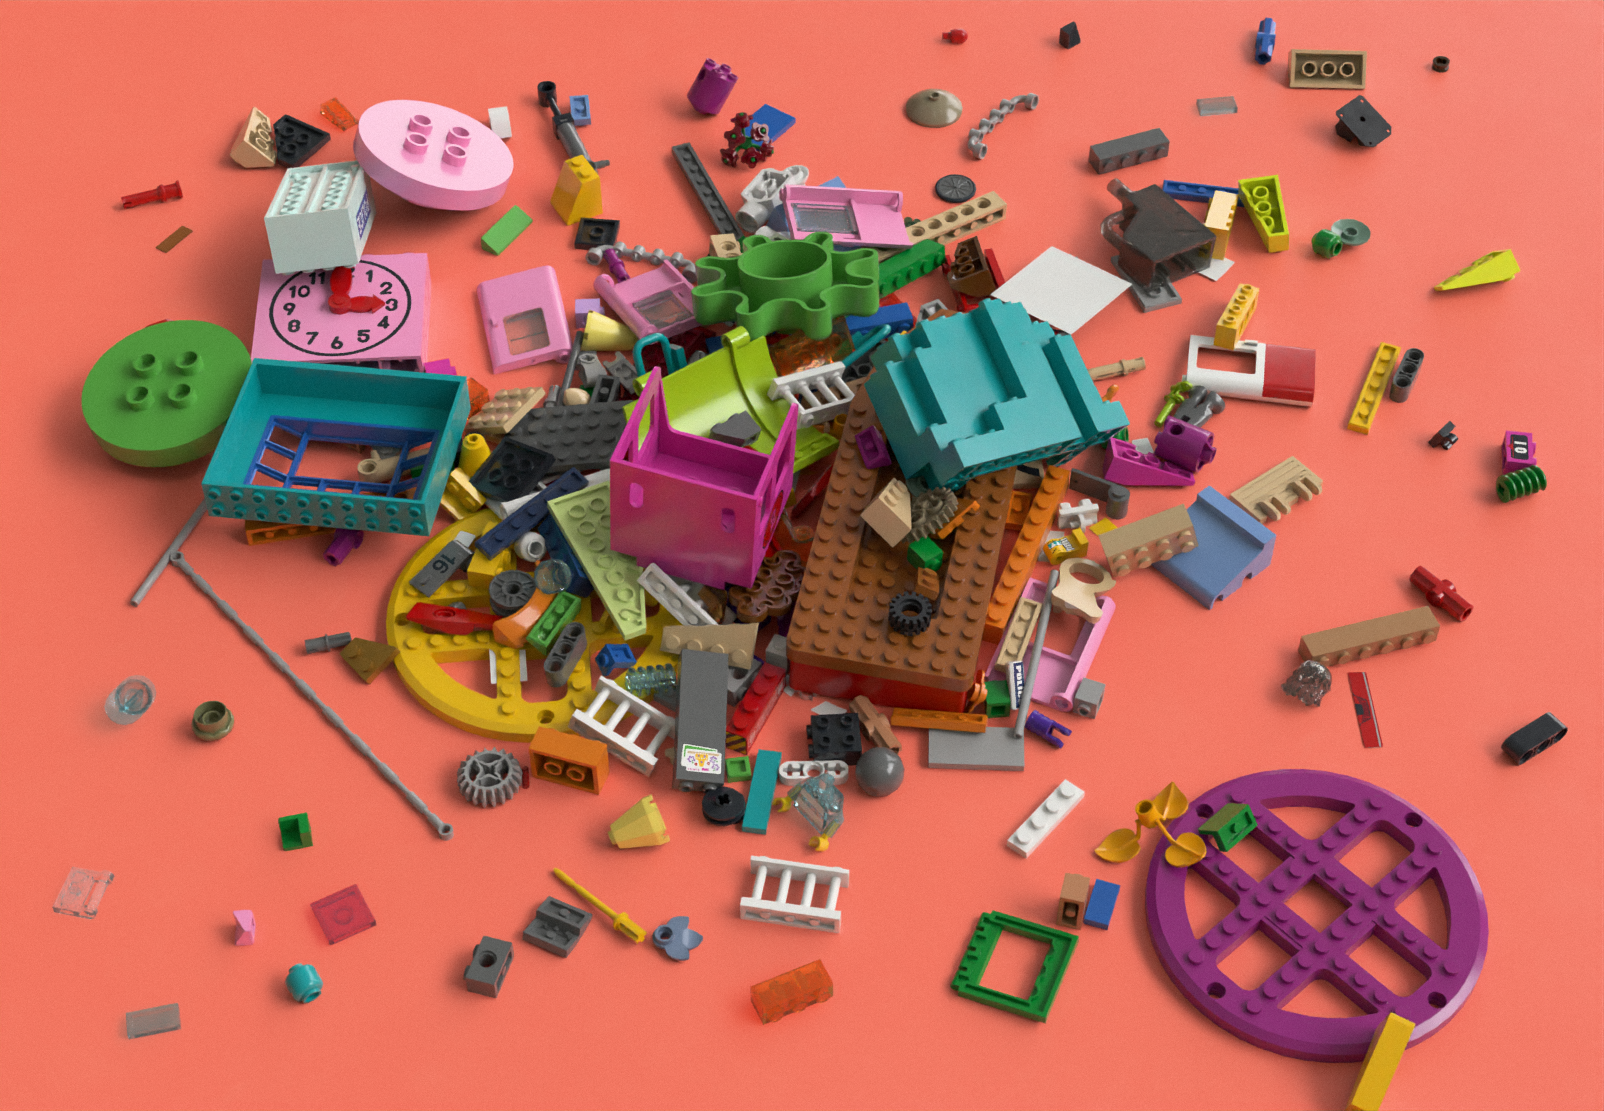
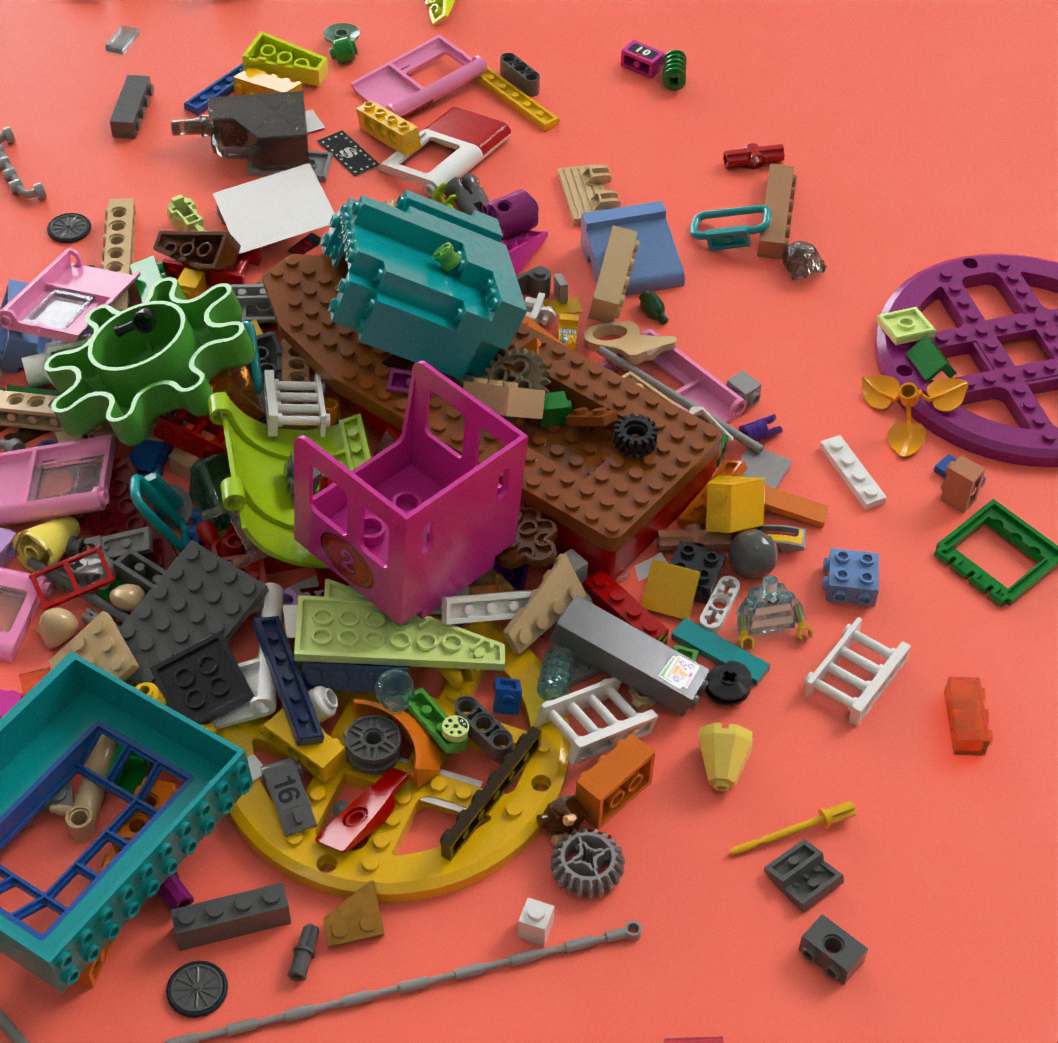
camera: 65 degrees left, 0 degrees up
(273, 599) = (197, 989): none -> dark grey wheel
(333, 587) = (231, 916): none -> dark grey brick
(417, 764) = (536, 922): none -> white brick
(507, 683) = (485, 799): none -> dark brown plate
(518, 741) = (561, 816): none -> reddish brown piece
(530, 375) = (57, 627): none -> tan piece
(547, 632) = (455, 728): none -> yellowish green tile
(564, 371) = (78, 592): none -> red window
(612, 349) = (75, 546): none -> dark grey bush
(680, 938) = (863, 780): sand blue plate -> none
(798, 727) = (670, 589): none -> yellow tile
(808, 256) = (138, 323): none -> black bar
(905, 856) = (851, 576): none -> medium blue brick
(915, 728) = (735, 503): none -> yellow slope
(921, 789) = (786, 537): none -> slope
(937, 287) = (192, 283): none -> yellow brick
(962, 773) = (795, 506): none -> orange tile
(992, 391) = (447, 257): none -> bright green wheel
(1019, 247) = (183, 214): none -> yellowish green piece
(1123, 517) = (560, 288): none -> light grey tile
(1154, 595) = (653, 306): none -> dark green plant
(1196, 310) = (348, 153): none -> black sticker
(1263, 790) = (906, 325): none -> yellowish green tile
(1297, 618) = (730, 236): none -> teal bar
(1307, 300) = (401, 94): none -> bright pink piece
(1365, 710) = (838, 246): red sticker -> none
(1444, 436) = (596, 84): black tile -> none
(1534, 738) = (920, 173): black beam -> none

